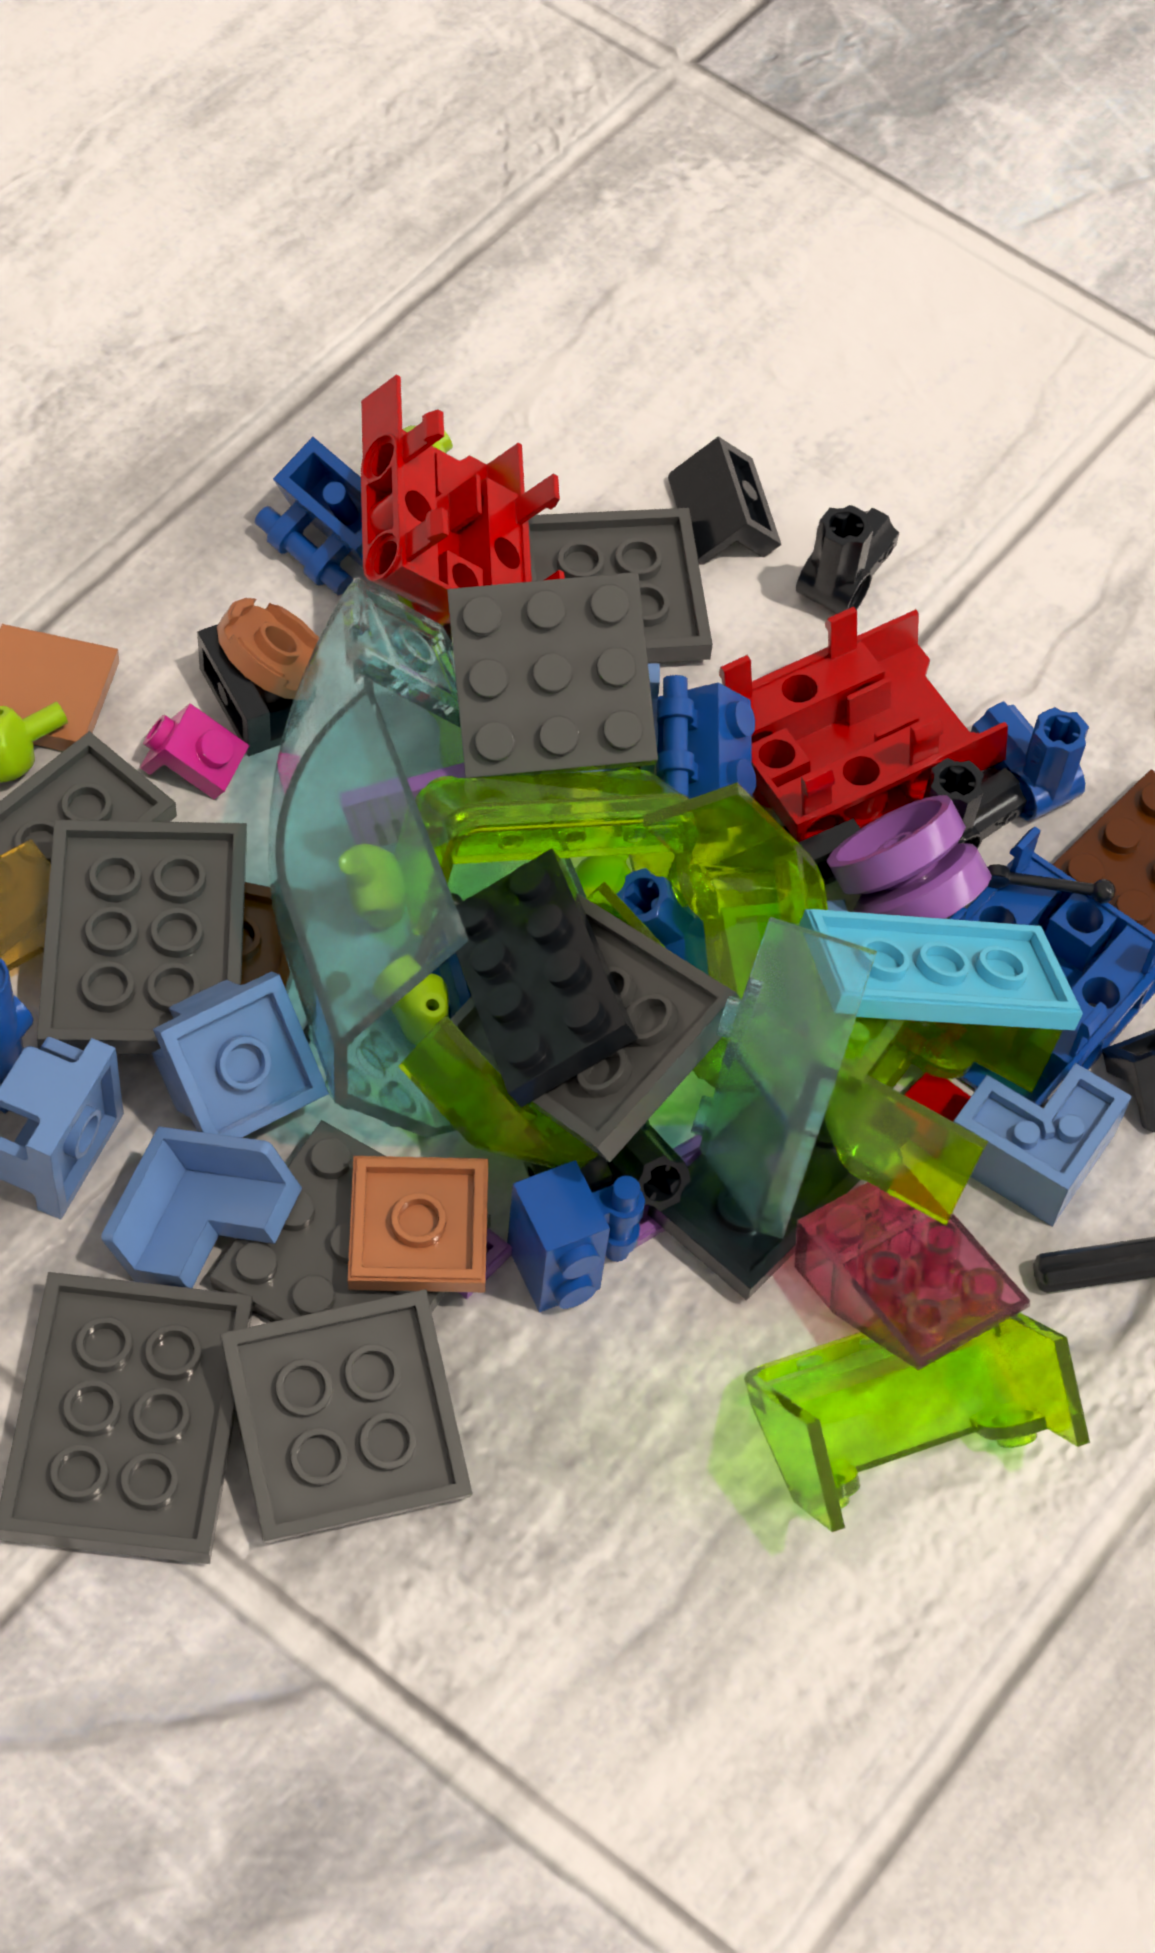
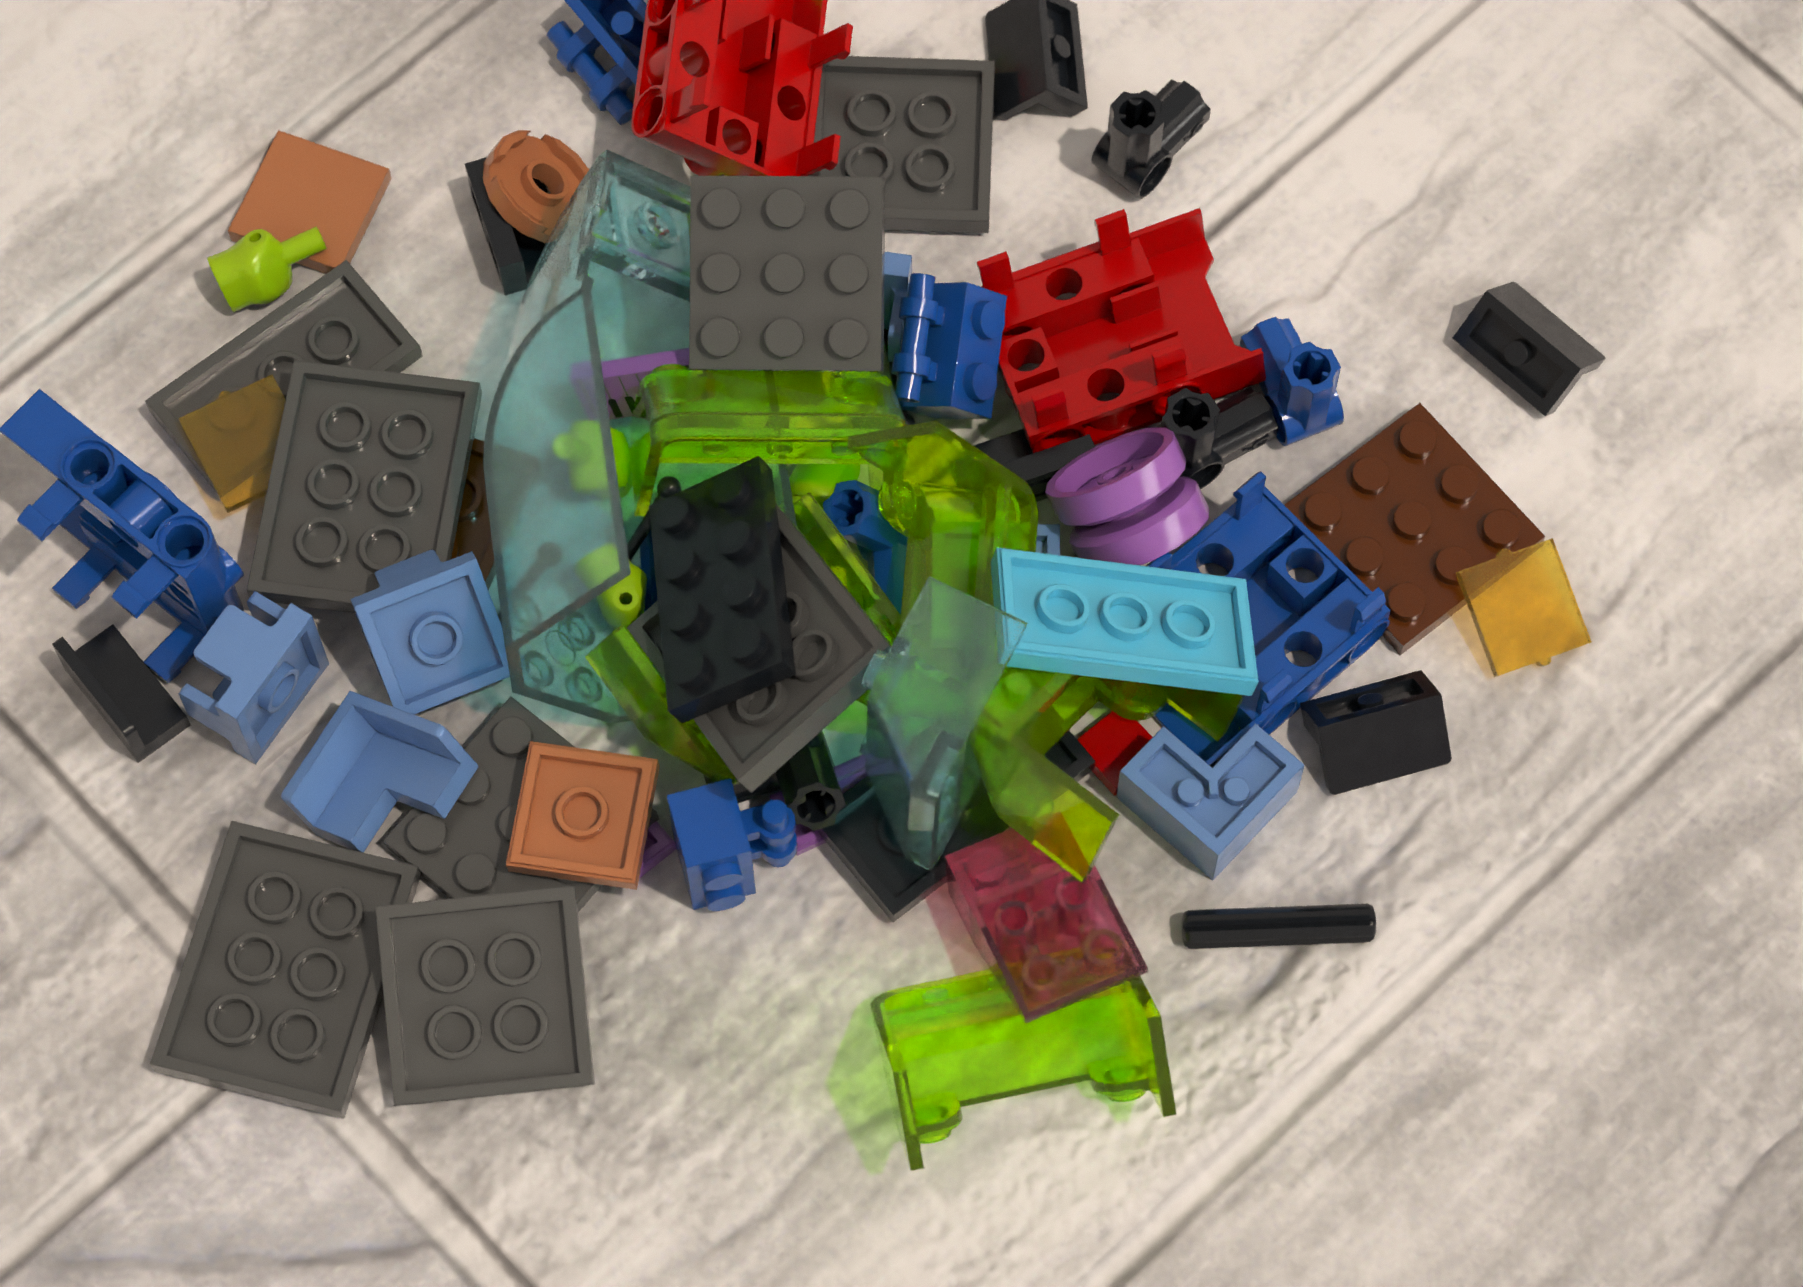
camera: 15 degrees right, 10 degrees up
(194, 749) = (448, 288): dark pink bracket -> none
(1101, 891) = (1325, 540): black hinge -> none

